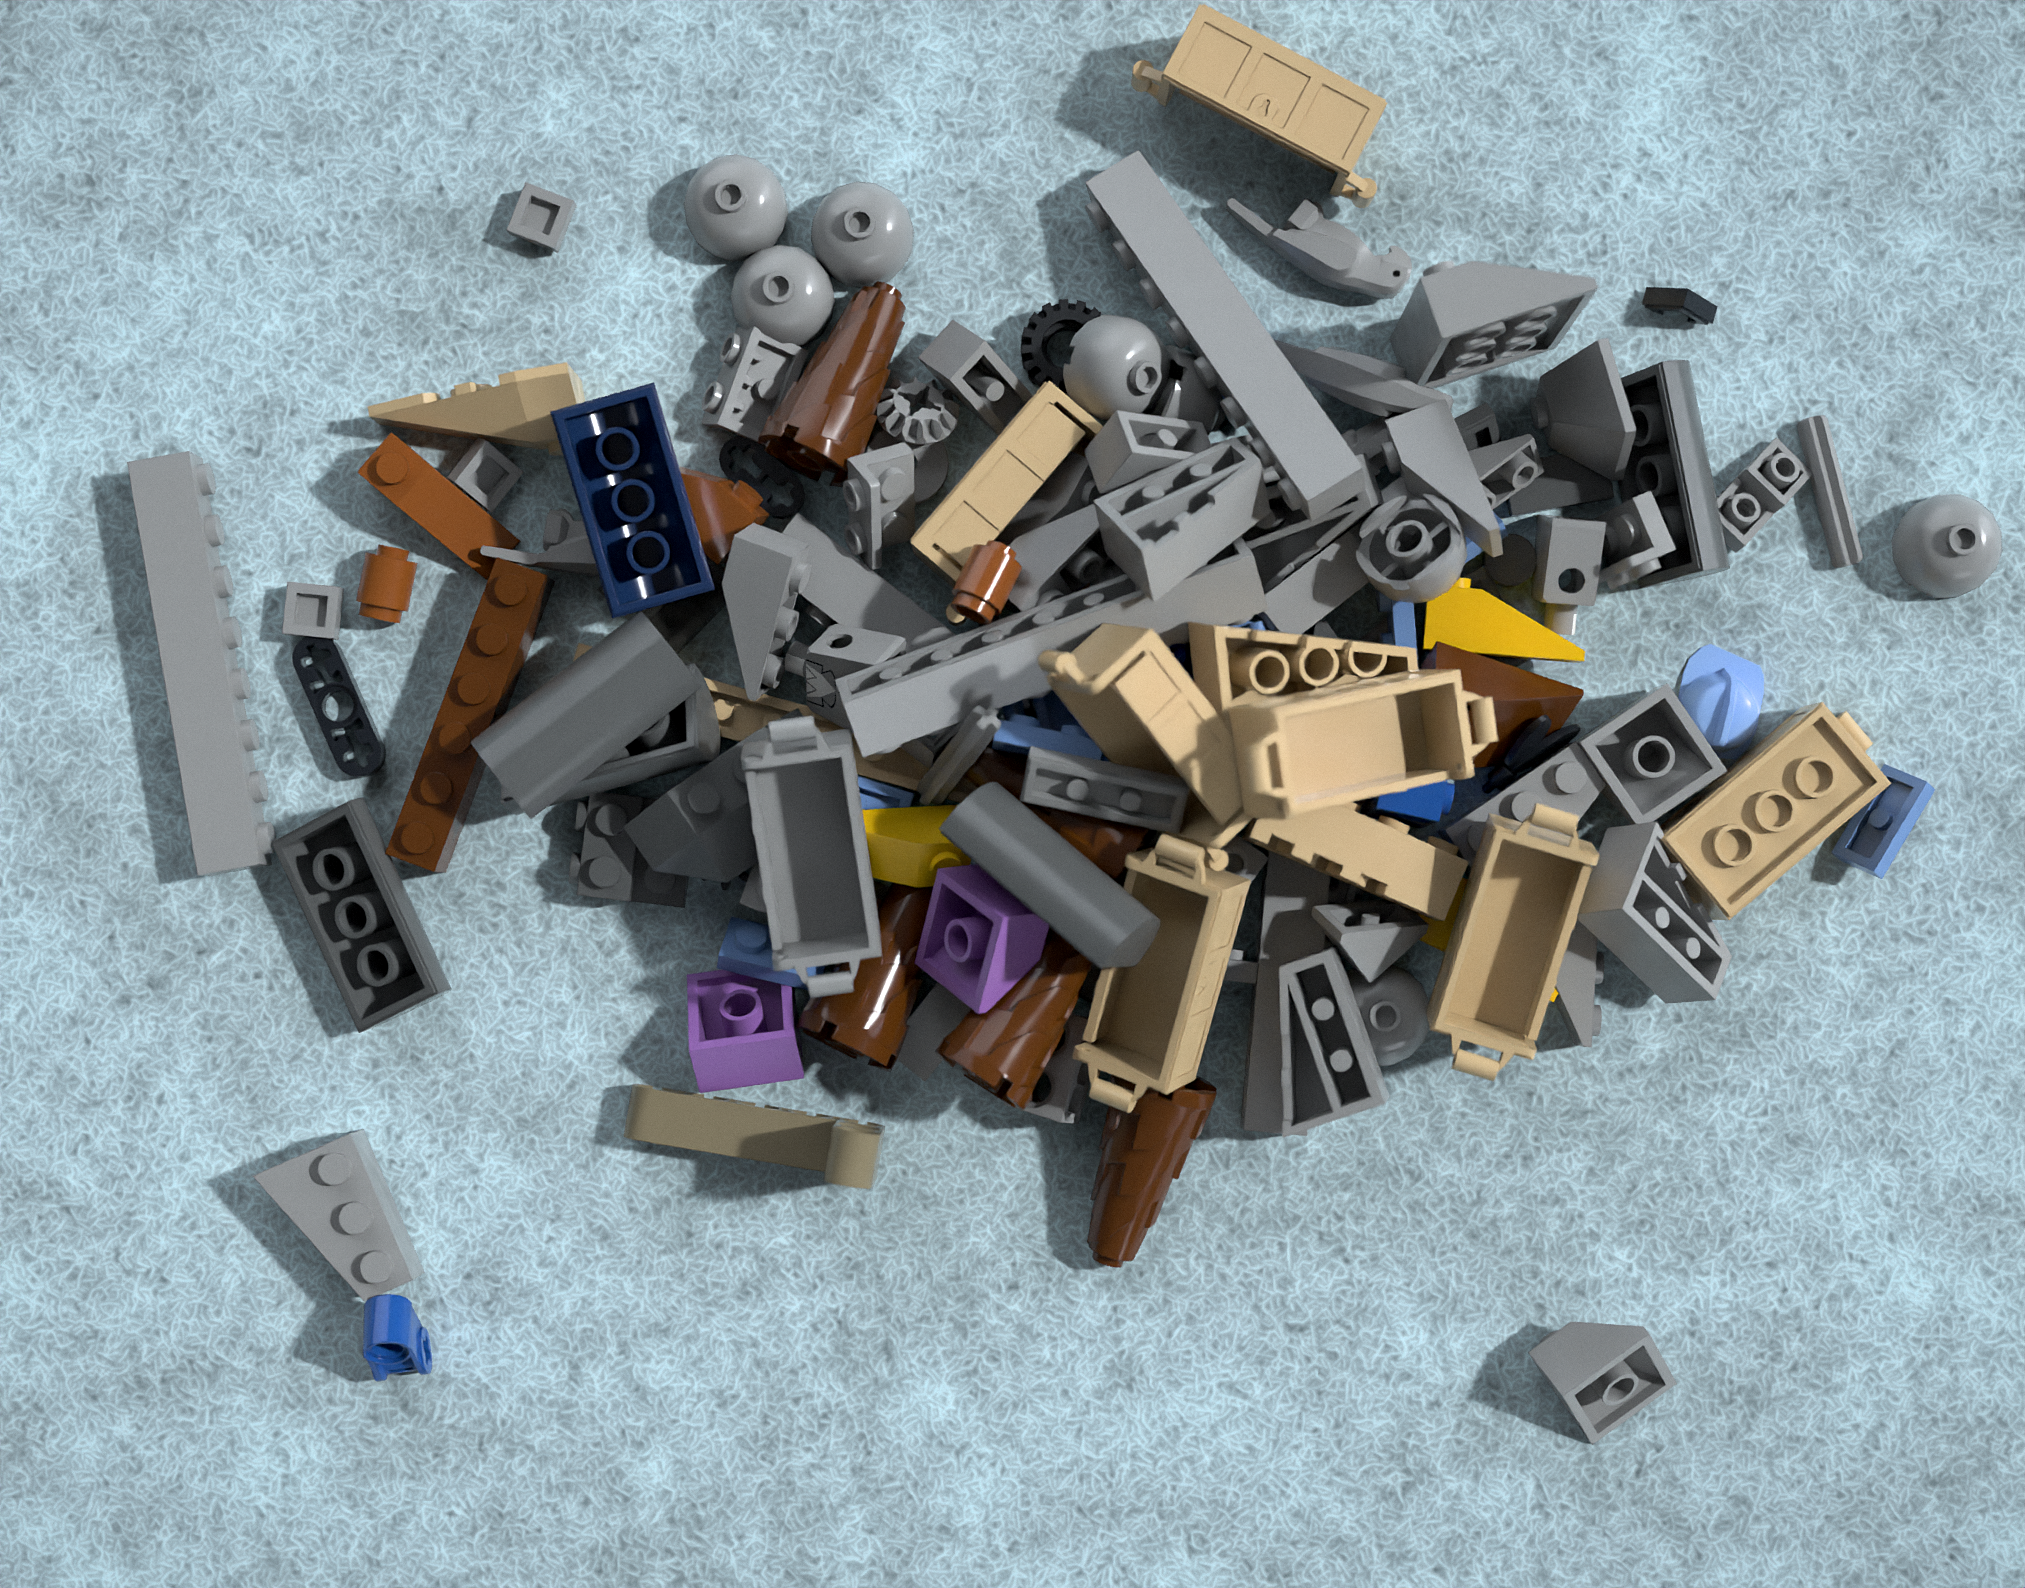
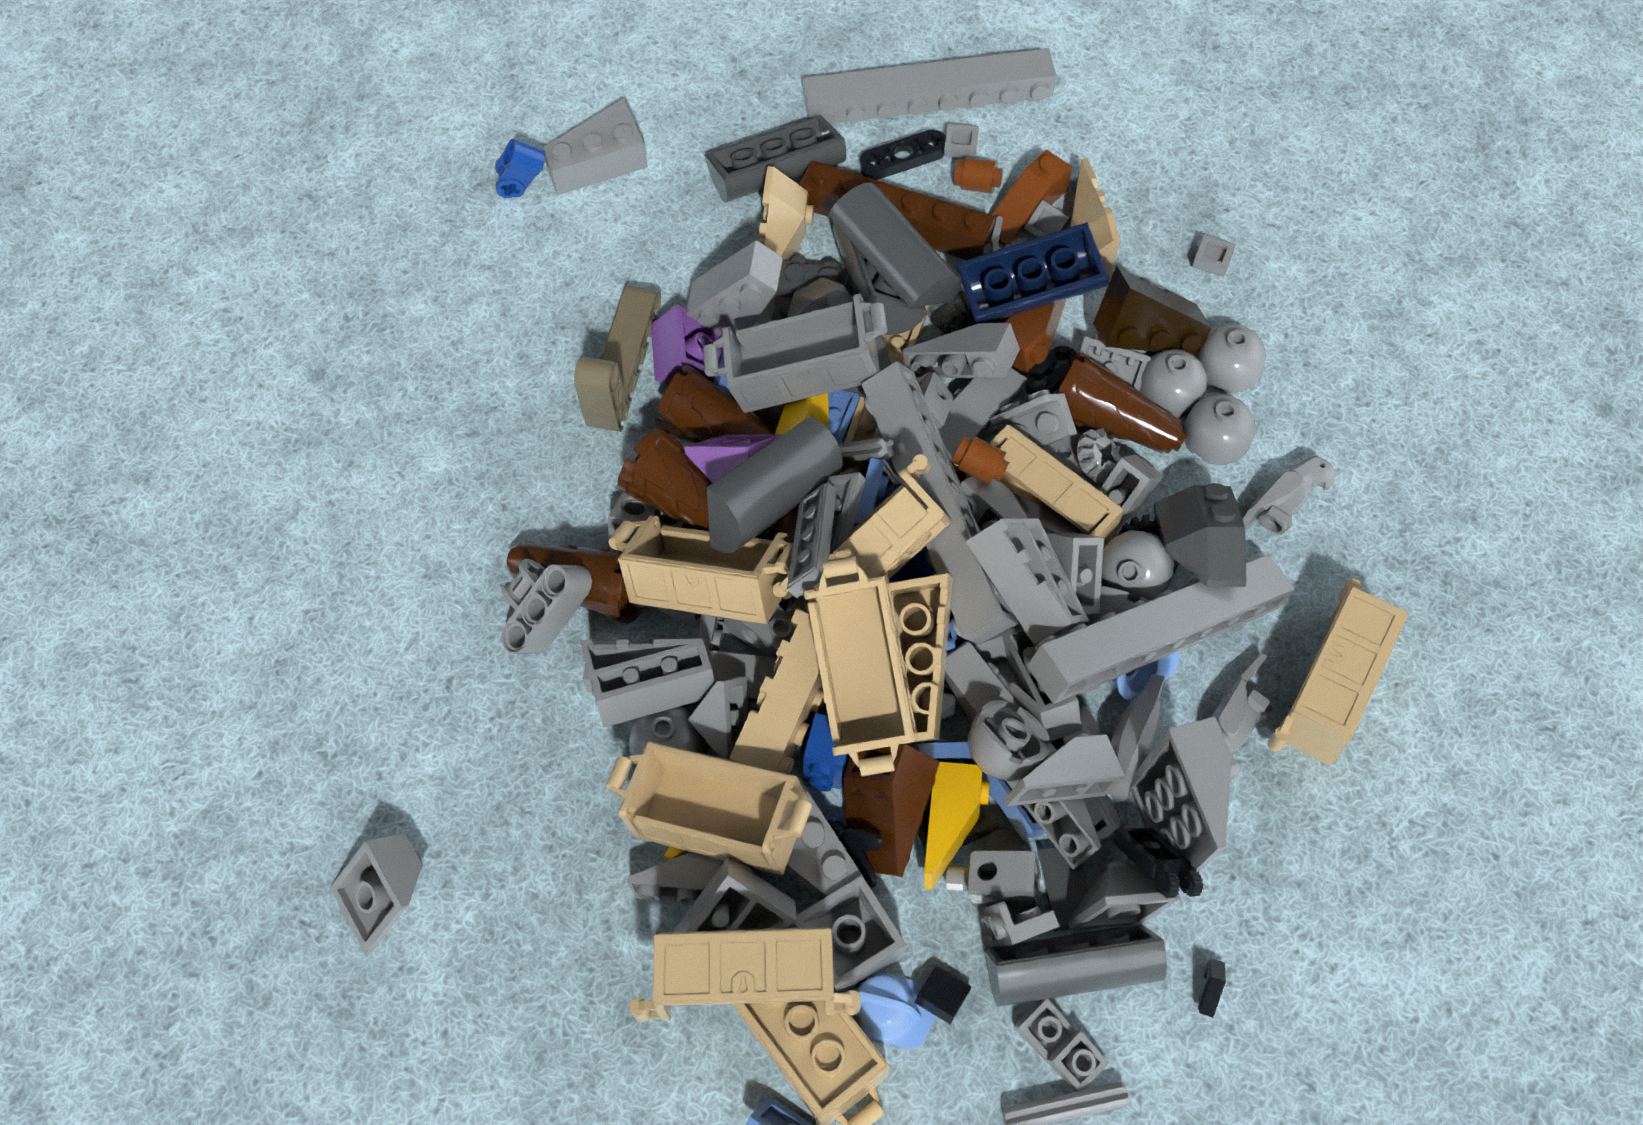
camera: 95 degrees right, 25 degrees down
(498, 895) = (784, 214): none -> tan wedge
(674, 960) = (736, 289): none -> light grey wedge
(695, 324) = (1148, 318): none -> dark brown wedge
(975, 148) = (1288, 492): none -> light grey animal
(1064, 271) = (1205, 533): none -> dark grey wedge
(1160, 815) = (811, 539): none -> light grey tile
(1199, 1206) = (542, 604): none -> light grey piece
(1550, 362) = (1159, 861): none -> black hinge
(1704, 639) = (943, 994): none -> black tile
(1750, 879) = (743, 969): none -> tan container

